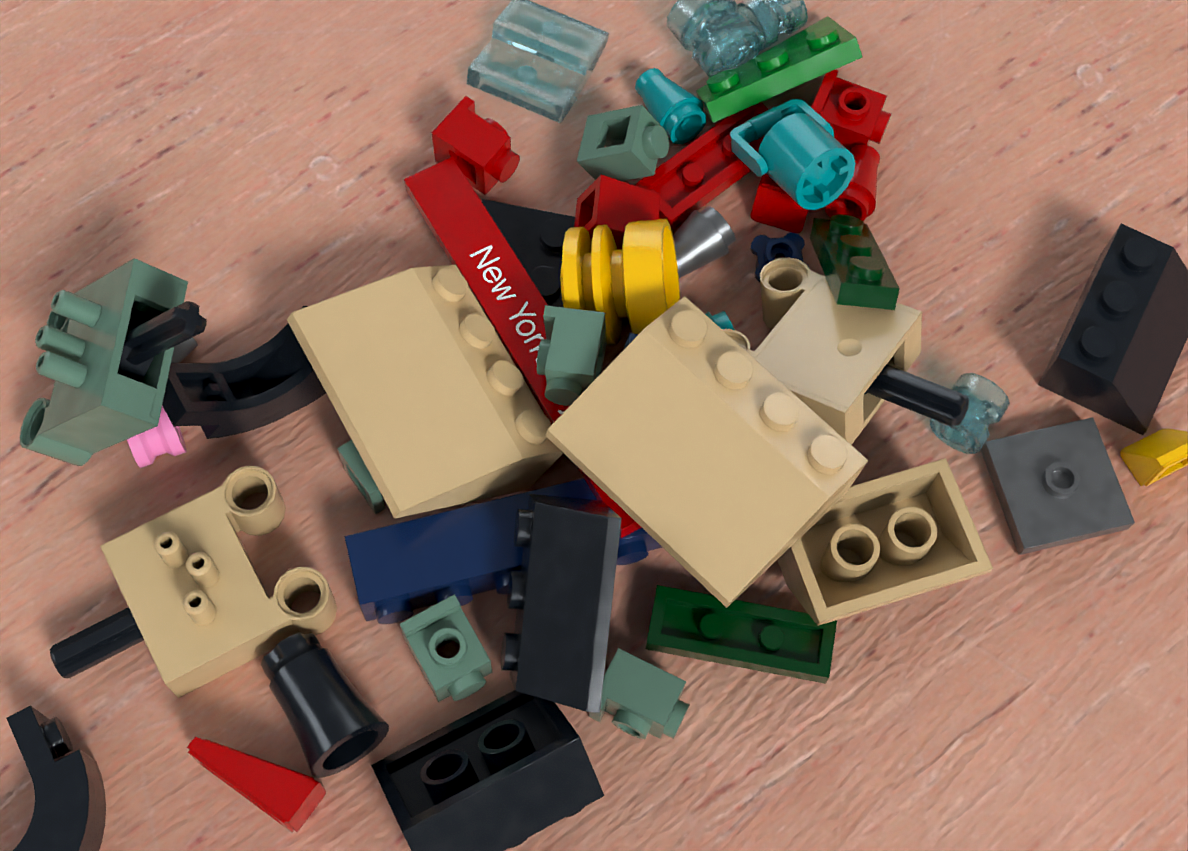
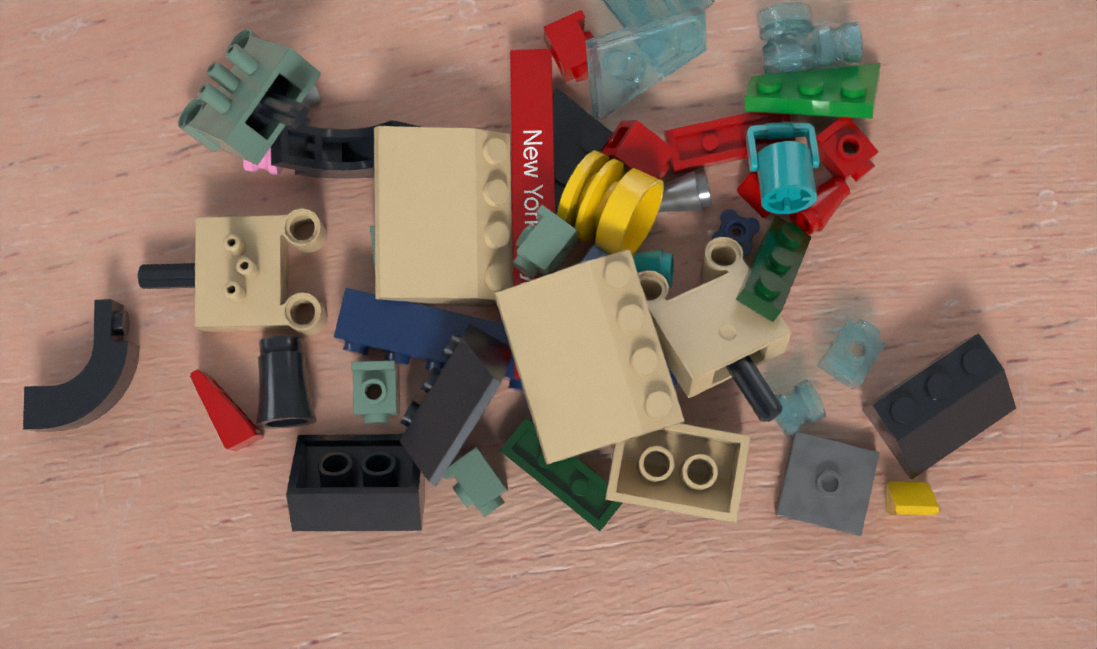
camera: 35 degrees right, 15 degrees up
(549, 120) = (640, 56): none -> clear light blue wing
(631, 141) = (677, 106): sand green brick -> none
(671, 106) = (725, 83): teal cone -> none
(992, 324) = (839, 360): none -> clear light blue brick

